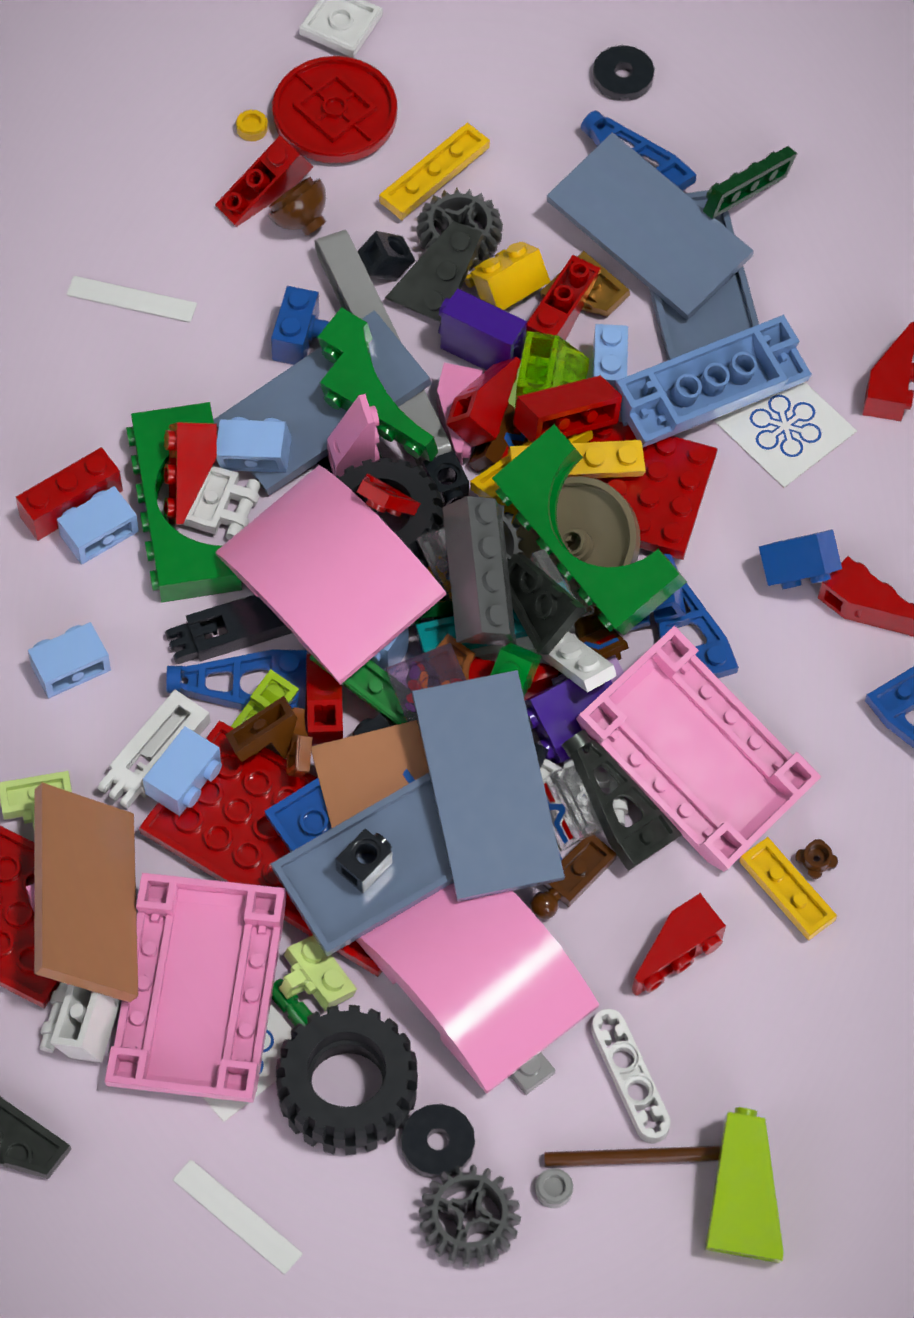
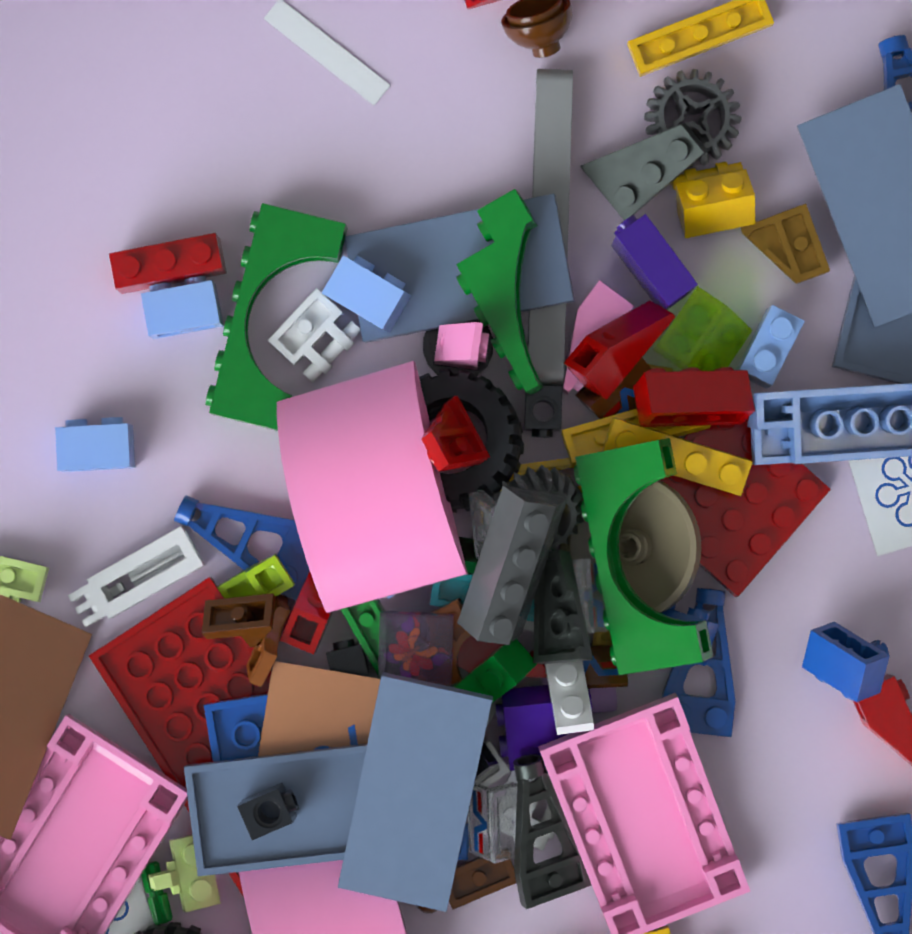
camera: 30 degrees right, 25 degrees up
(183, 771) = (148, 624): light blue brick -> none
(191, 457) = (297, 288): red slope -> none
(246, 621) = (271, 476): black hinge -> none
(296, 325) = (476, 167): blue brick -> none
(386, 256) = (600, 122): black brick -> none
(564, 299) = (753, 258): red slope -> none

